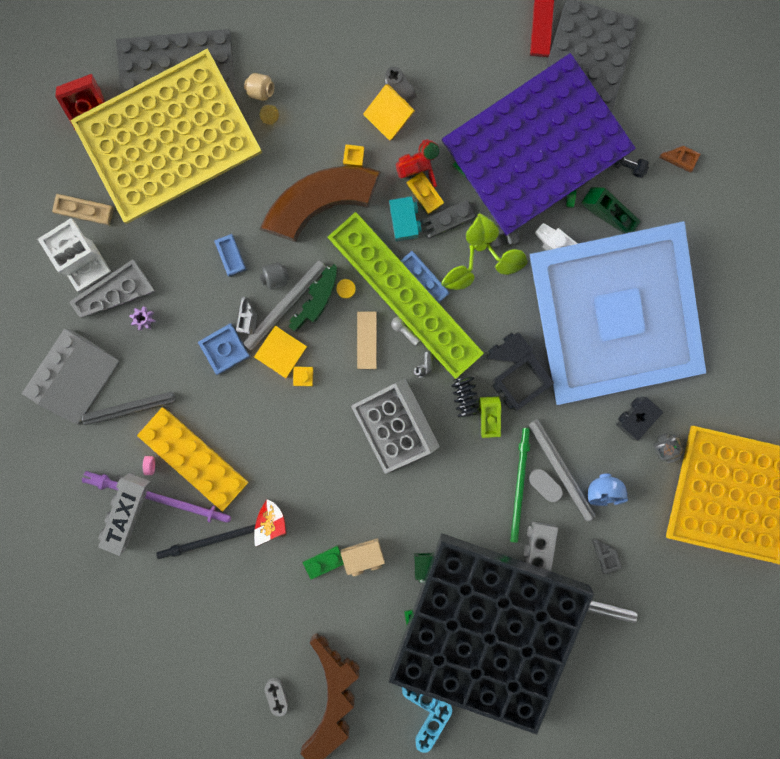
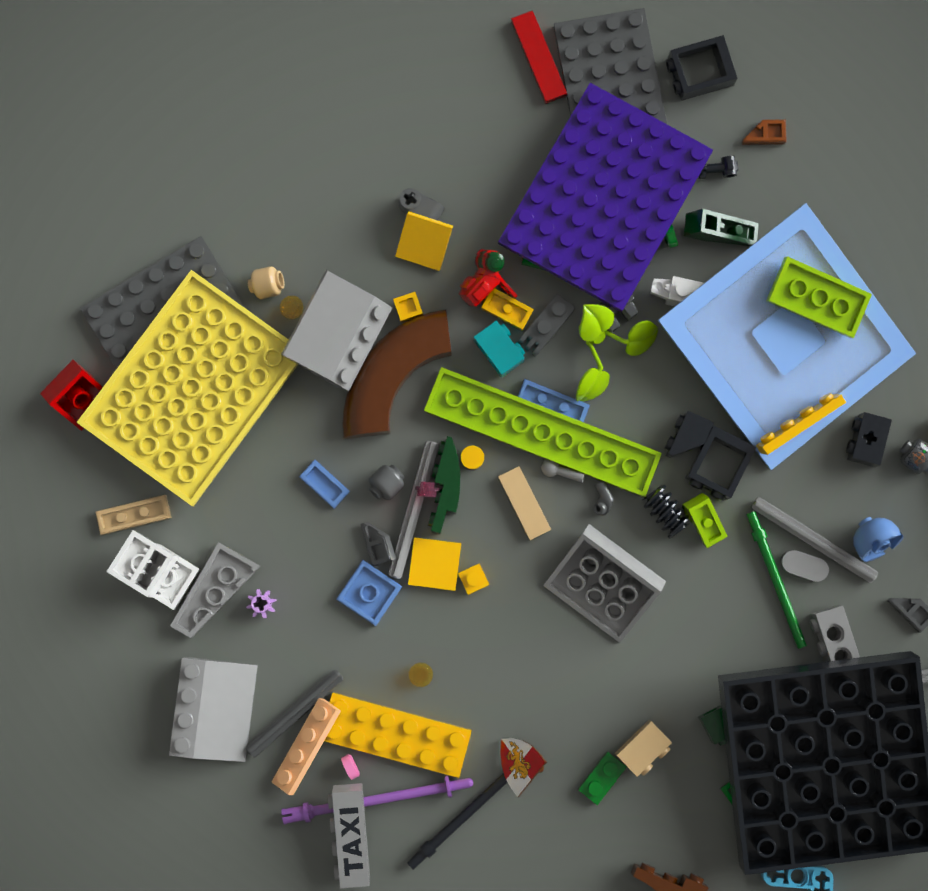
camera: 30 degrees left, 5 degrees down
(124, 435) = (306, 746): none -> light nougat plate
(231, 425) = (420, 674): none -> clear yellow plate
(291, 145) = (336, 330): none -> light grey slope
(300, 295) = (427, 489): none -> clear pink plate
(603, 380) = (792, 428): none -> yellow plate
(657, 296) = (819, 297): none -> lime plate
(677, 89) = (723, 60): none -> black window

